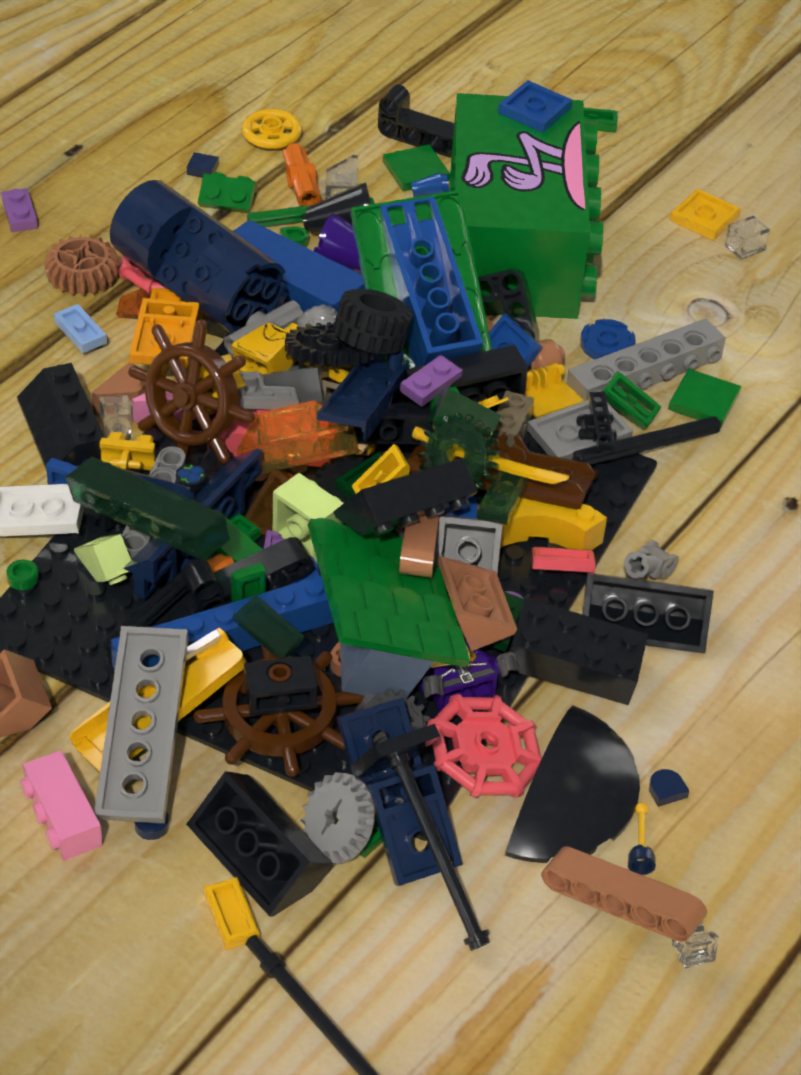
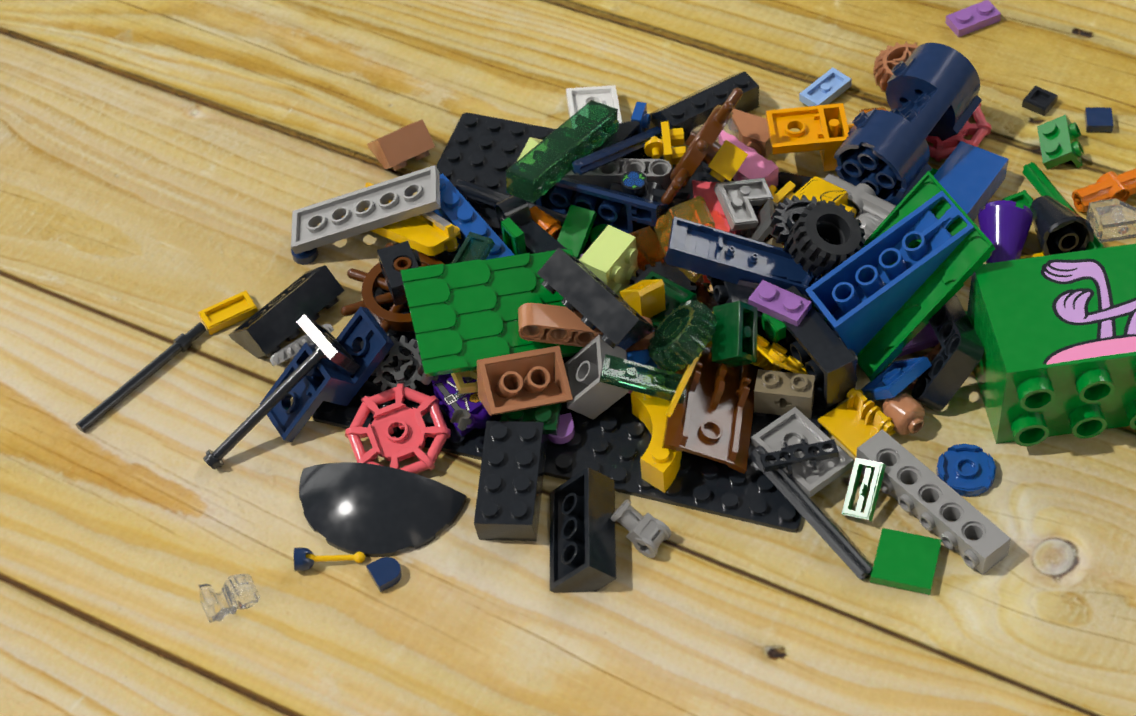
camera: 90 degrees right, 5 degrees up
(22, 574) = (523, 121): green tile -> none
(61, 805) = (314, 187): bright pink brick -> none
(563, 559) = (623, 459): coral tile -> none
(624, 894) = (248, 539): nougat beam -> none

